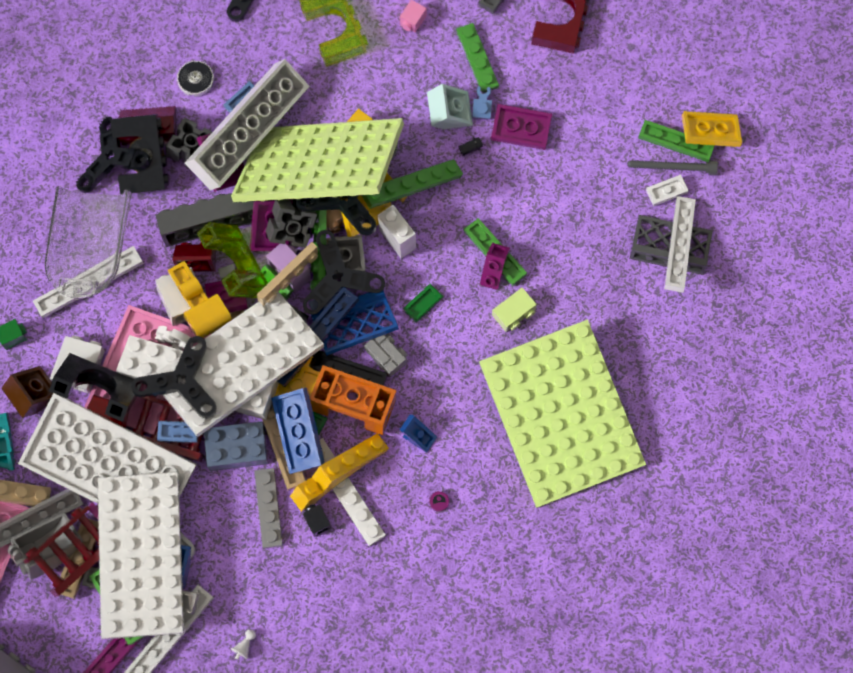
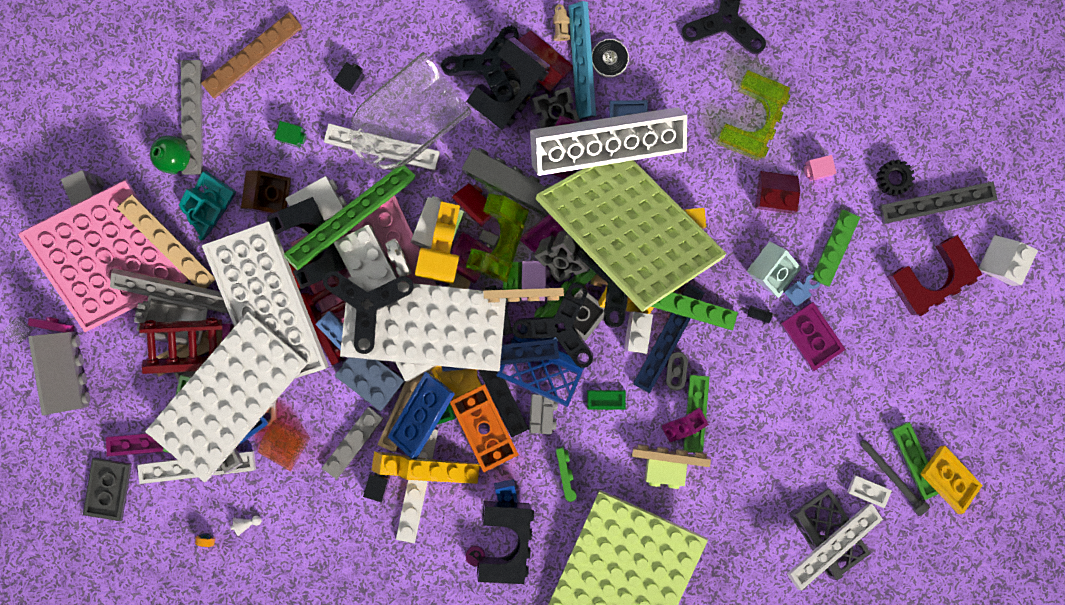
camera: 45 degrees right, 15 degrees up
(18, 256) = (349, 77): none -> black brick
(110, 342) = (348, 217): none -> bright green plate
(136, 83) = (561, 23): none -> tan piece
(175, 94) = (582, 60): none -> medium azure plate
(217, 558) = (283, 444): none -> clear orange slope
(401, 58) = (778, 192): none -> dark red slope
(426, 229) = (665, 345): none -> dark blue plate
(443, 439) = (512, 567): none -> black arch
(445, 379) = (566, 474): none -> bright green plate
(452, 236) = (676, 371): none -> dark grey plate
(527, 277) = (680, 456): none -> tan plate

